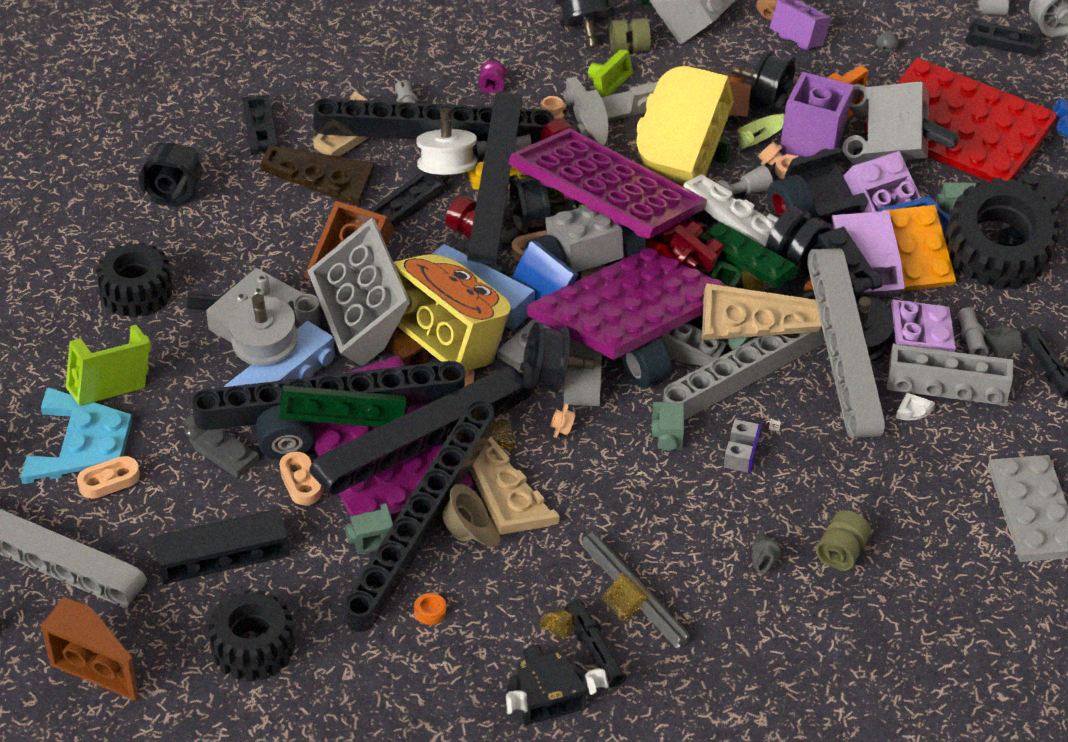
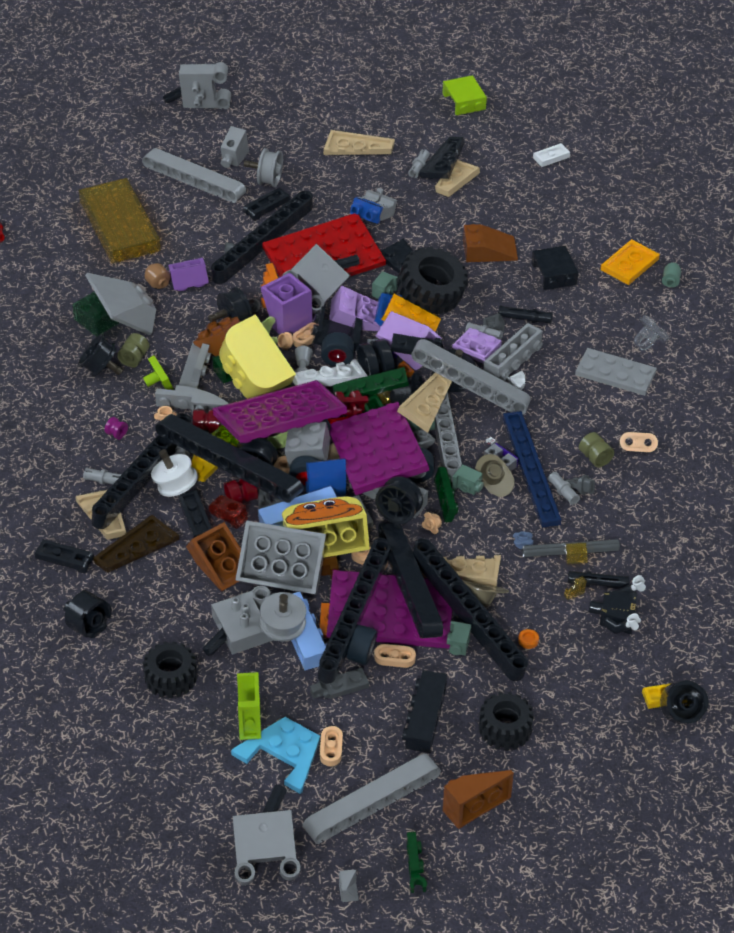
camera: 60 degrees left, 0 degrees up
(339, 406) = (375, 605): dark green plate -> none
(431, 226) = (229, 510): none -> clear red leg
(608, 529) = (522, 538): none -> sand blue plate
(623, 414) = (445, 494): none -> dark green plate
(702, 447) = (495, 468): none -> dark tan piece
(742, 536) = (563, 488): none -> light grey pin
(749, 487) = (531, 469): none -> dark blue plate
(906, 588) = (638, 442): none -> light nougat plate
(962, 58) = (270, 229): none -> black beam

